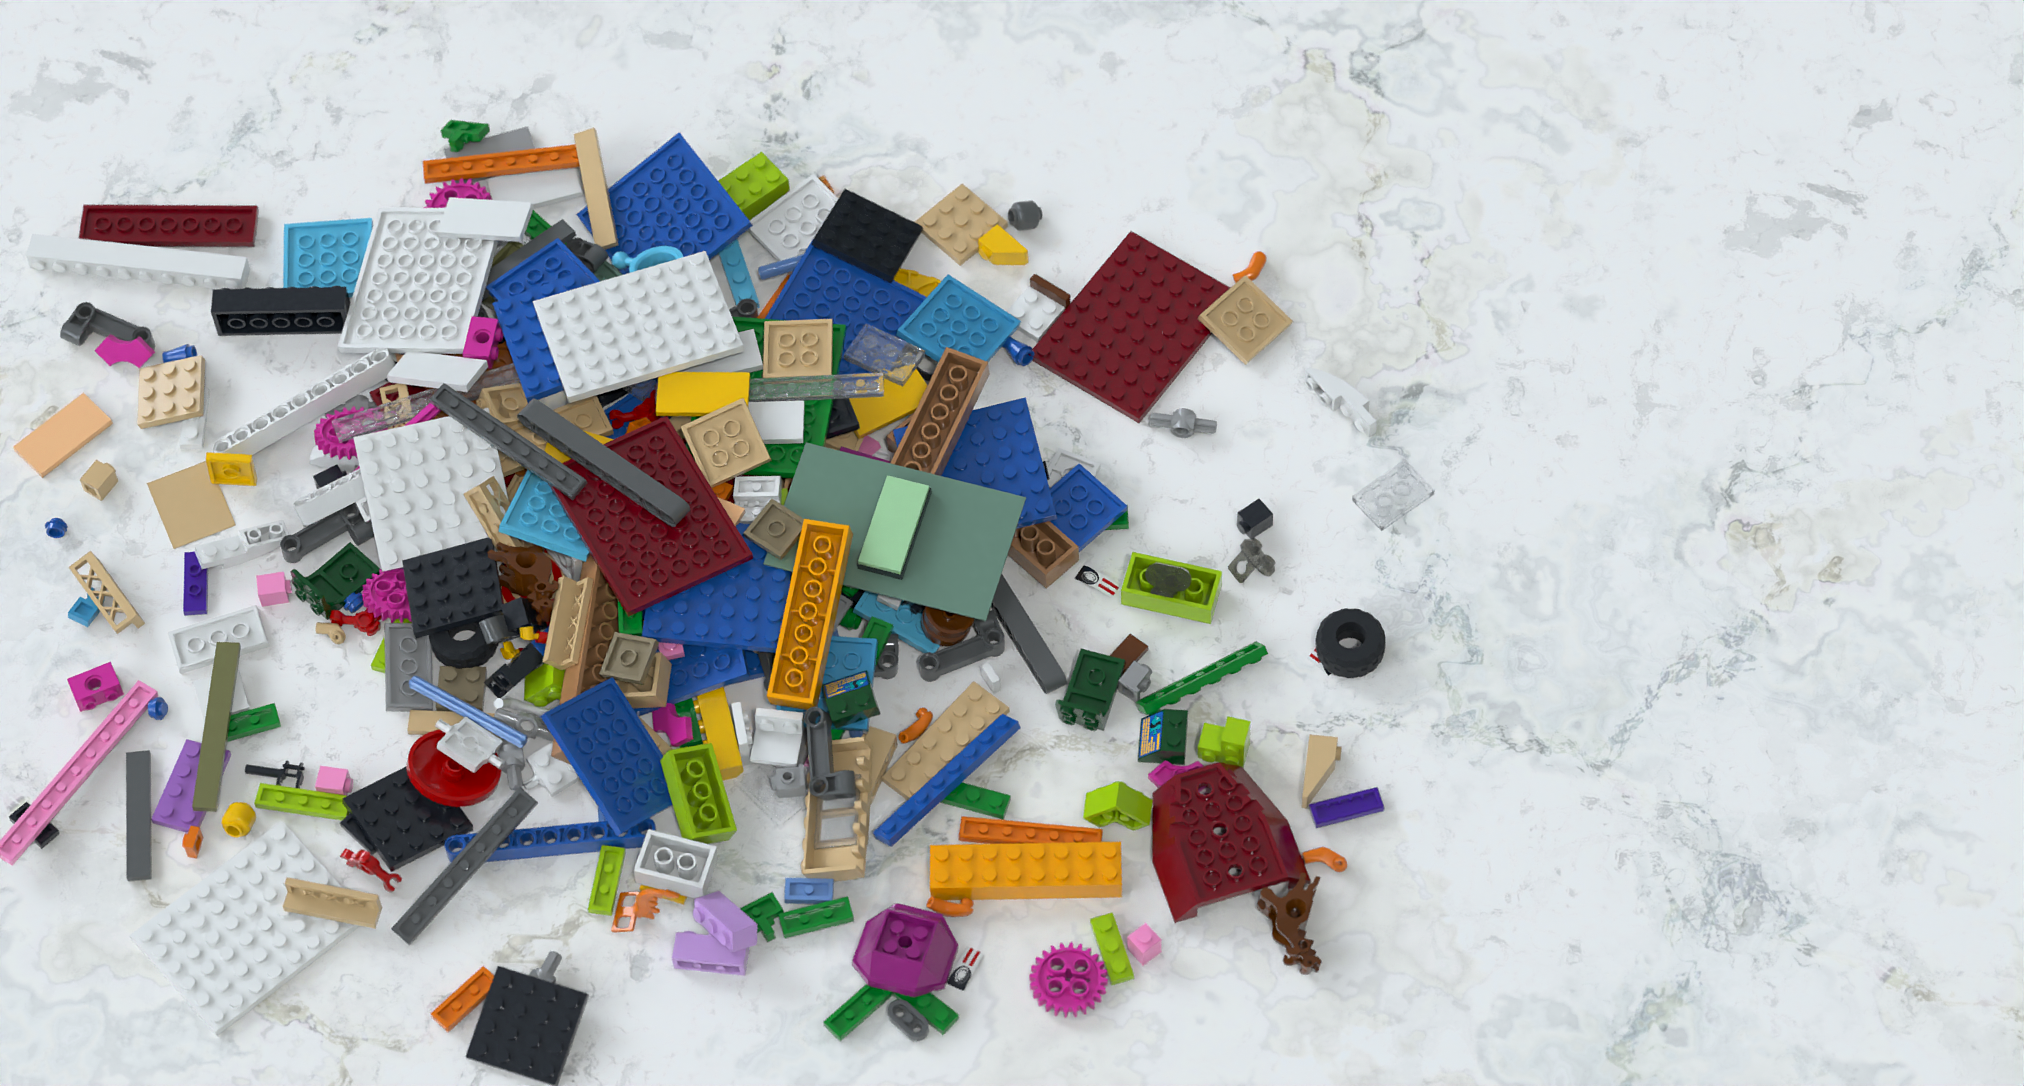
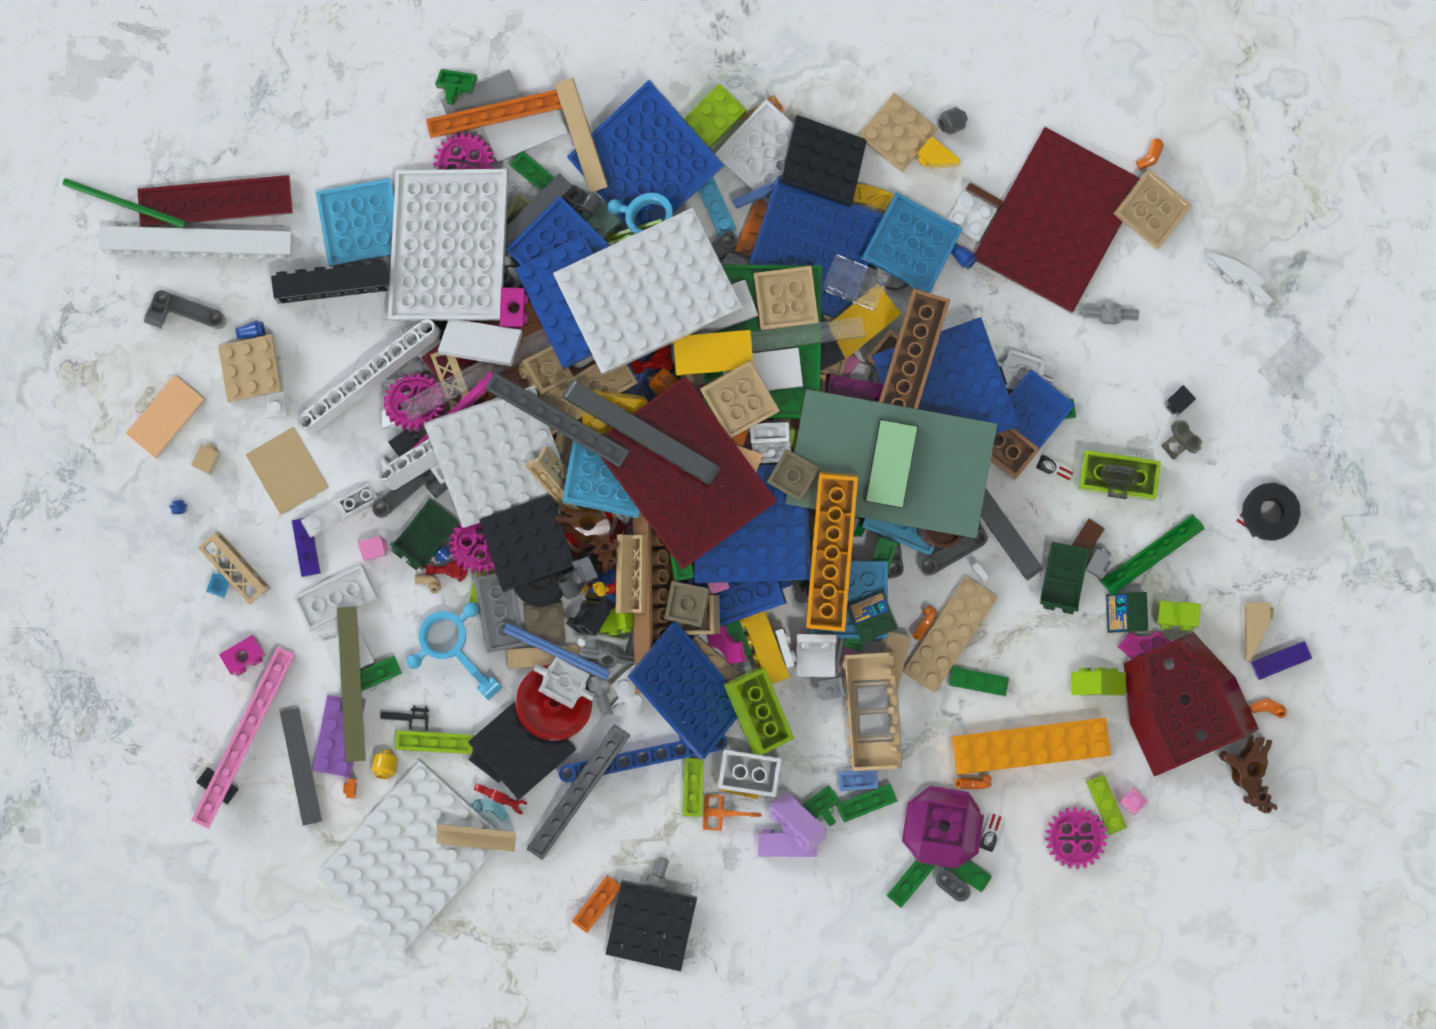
camera: 10 degrees left, 25 degrees up
(65, 216) = (124, 203): none -> green piece
(117, 350) = (197, 333): dark pink tile -> none
(157, 708) = (298, 669): blue plate -> none
(231, 469) = (318, 442): yellow tile -> none
(334, 781) = (456, 723): bright pink brick -> none
(357, 878) = (491, 806): none -> clear light blue arm
(379, 745) = (489, 686): none -> medium azure piece
(485, 219) = (494, 184): white tile -> none
(838, 784) = (856, 673): dark grey piece -> none
(946, 780) = (957, 672): blue plate -> none
(1016, 832) = (1029, 709): orange tile -> none

